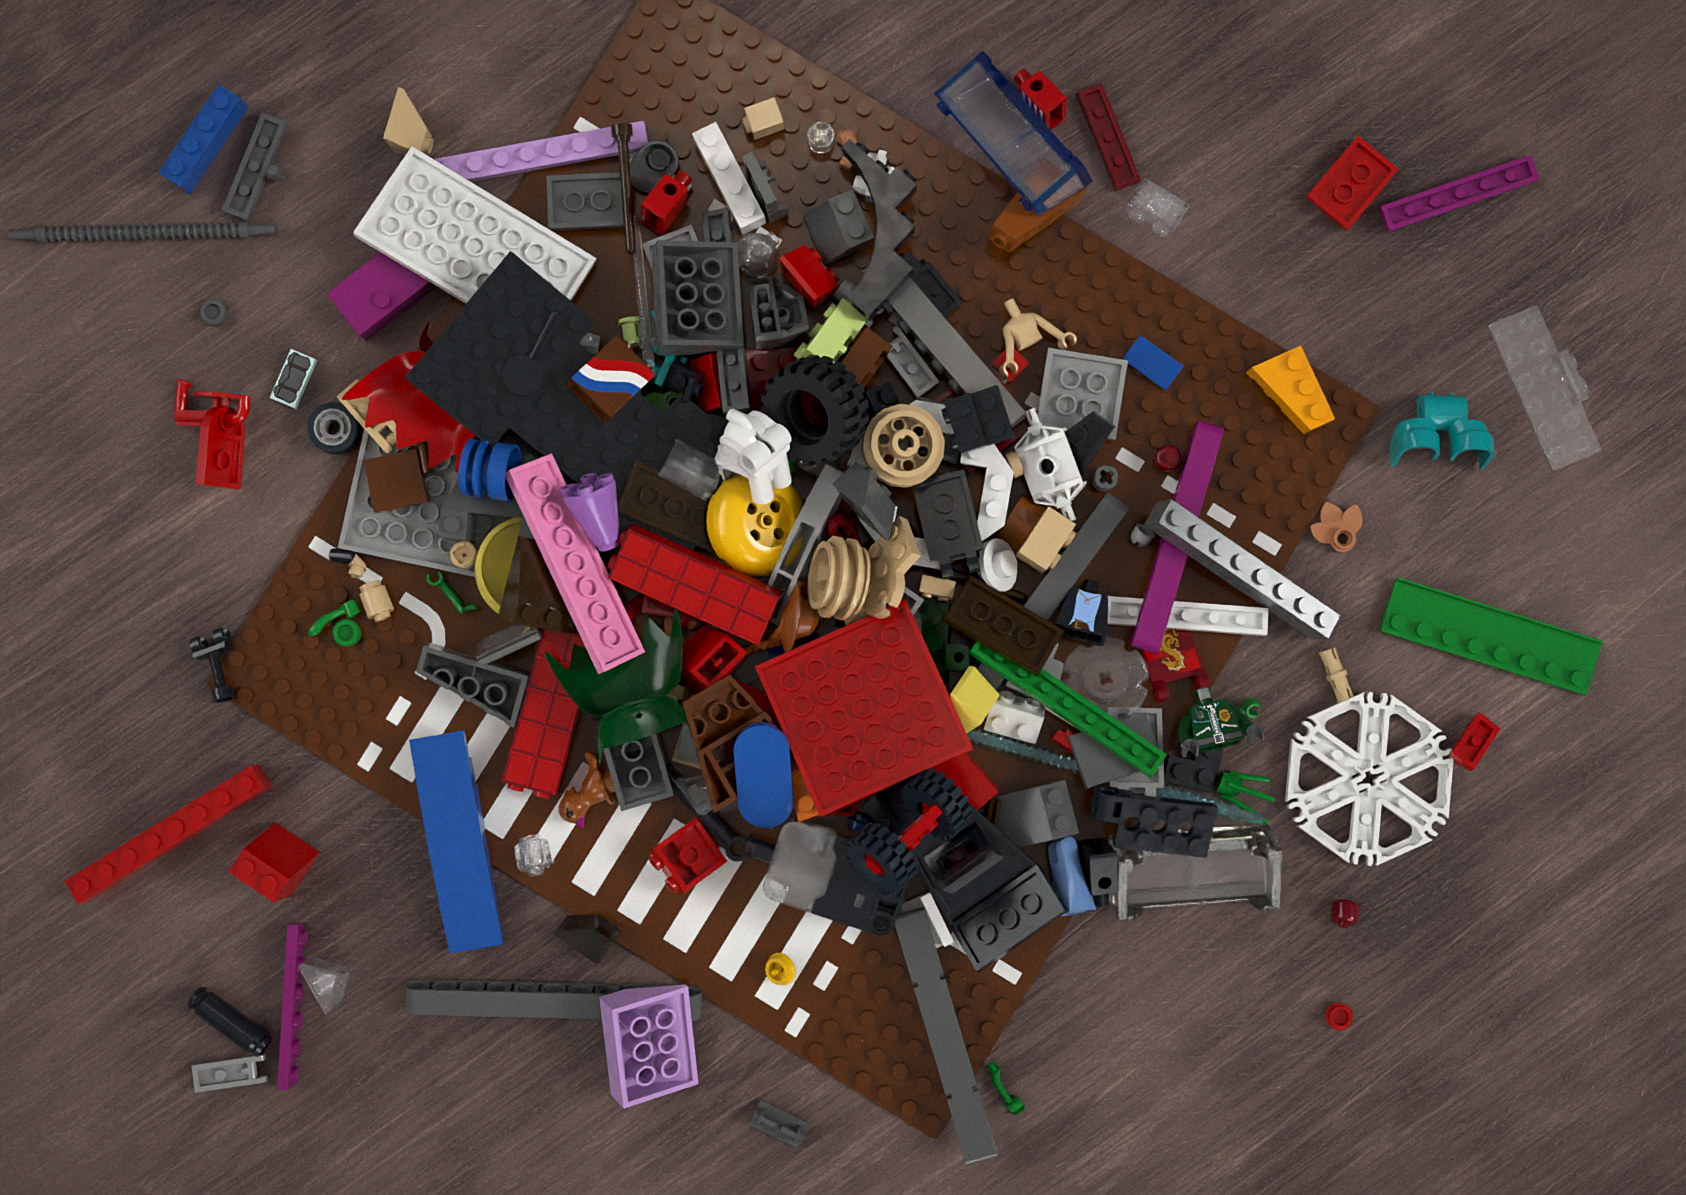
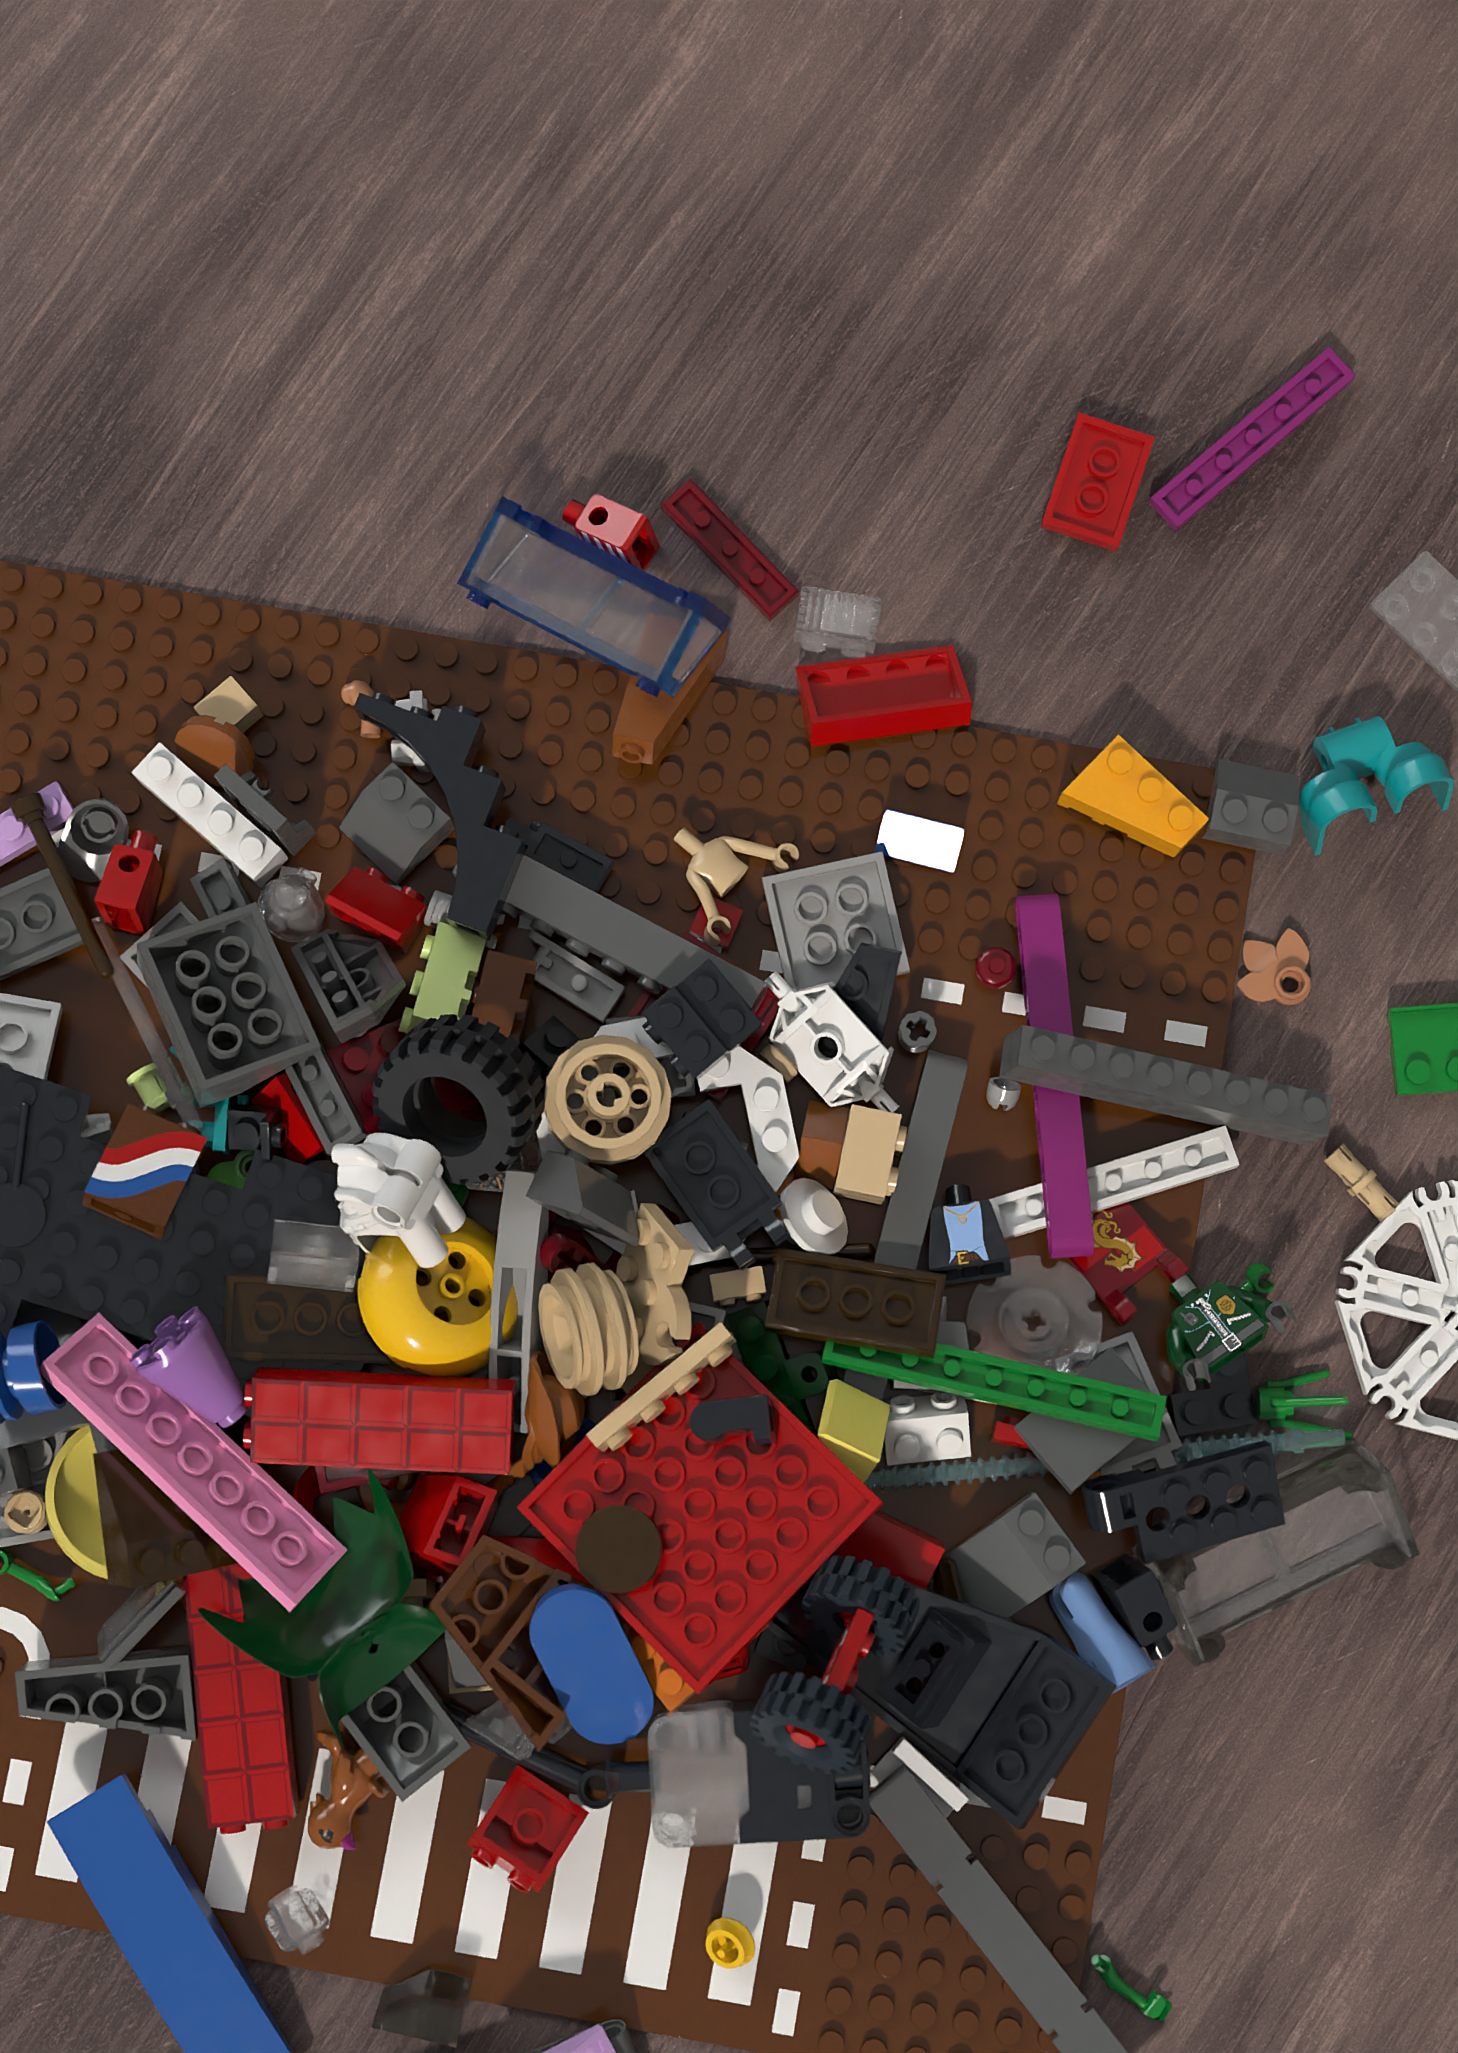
camera: 20 degrees left, 5 degrees down
(746, 136) = (209, 745): none -> dark orange tile
(806, 714) = (619, 1549): none -> dark brown tile
(821, 132) = (313, 700): clear wheel -> none
(857, 821) = (758, 1673): dark blue plate -> none
(858, 634) = (649, 1400): none -> tan plate
(906, 664) = (736, 1416): none -> black leg
(1166, 264) = (883, 695): none -> red slope
(1364, 422) = (1252, 807): none -> dark grey slope

